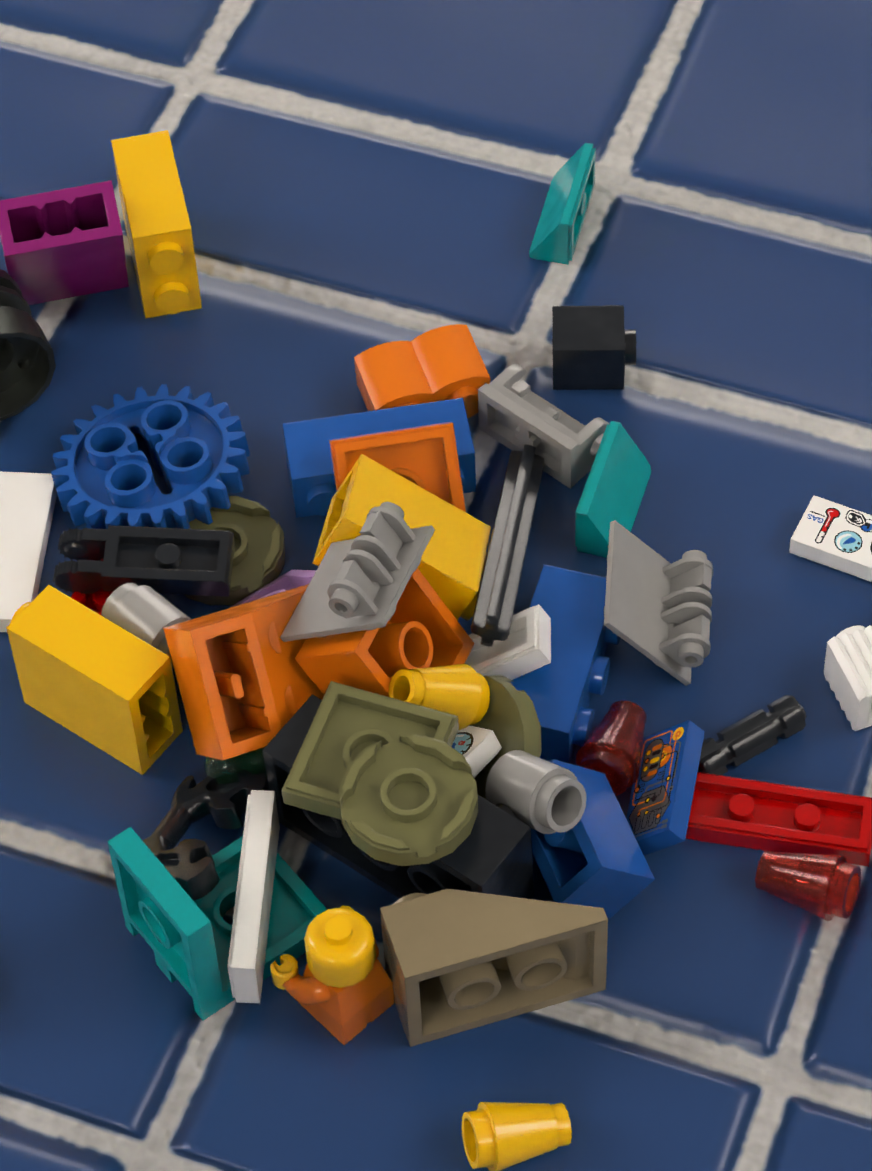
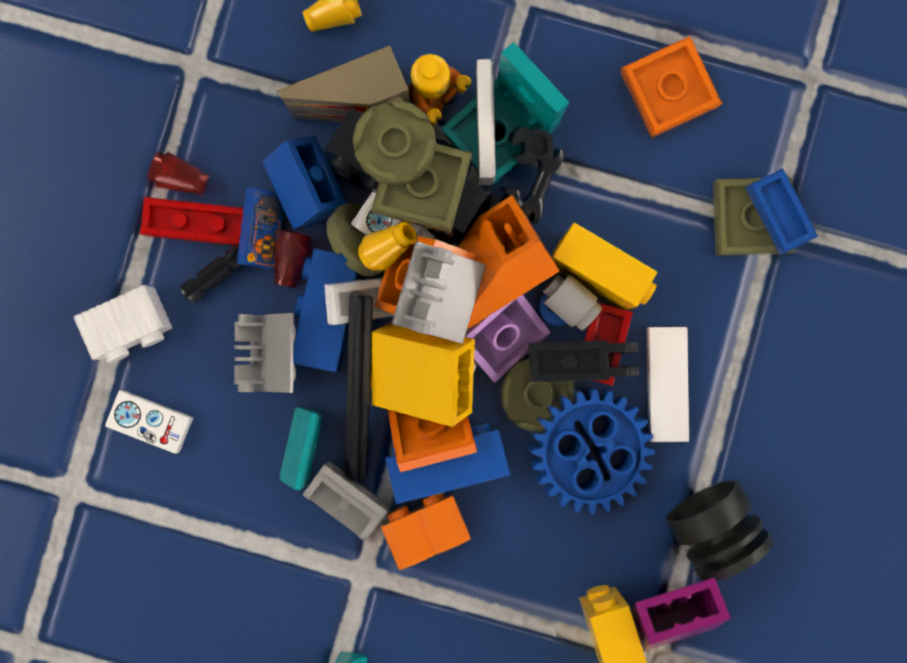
camera: 170 degrees right, 35 degrees up
(537, 791) = (326, 181): light grey brick -> none
(591, 347) = (318, 566): black brick -> none

